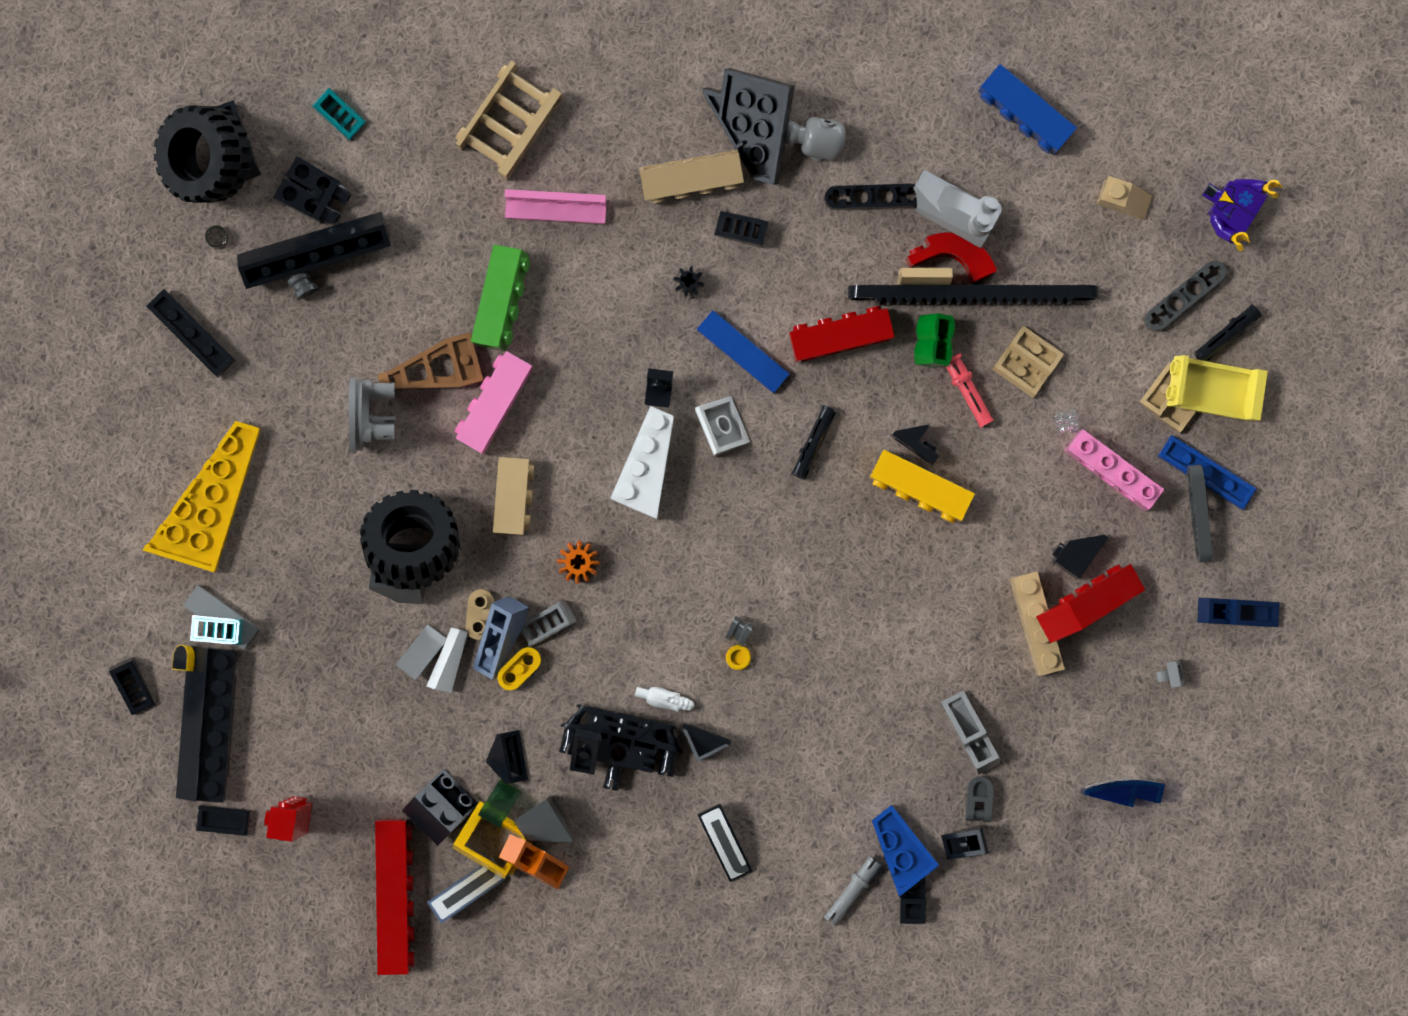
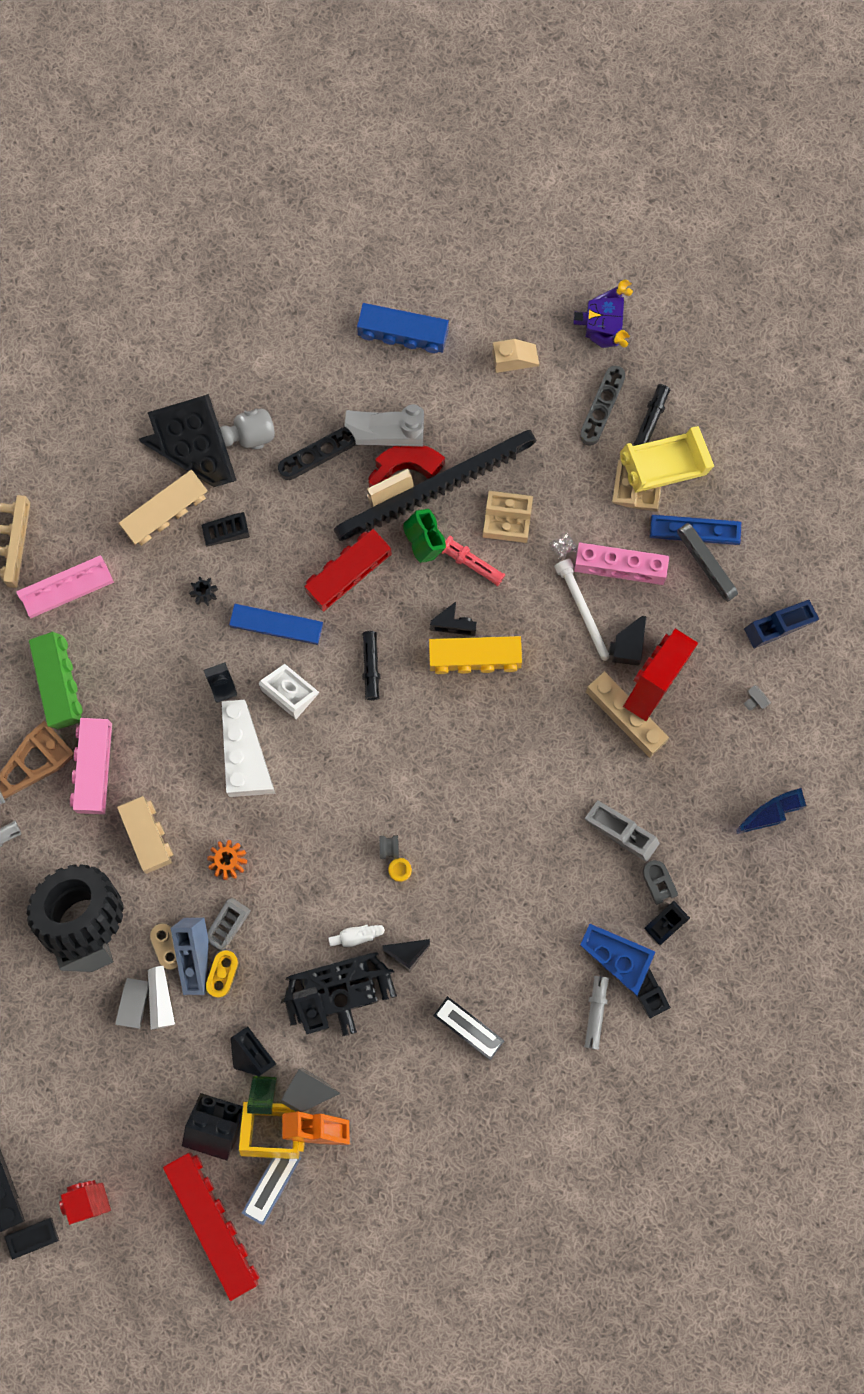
camera: 25 degrees left, 10 degrees down
(1055, 447) = (565, 569): none -> white piece

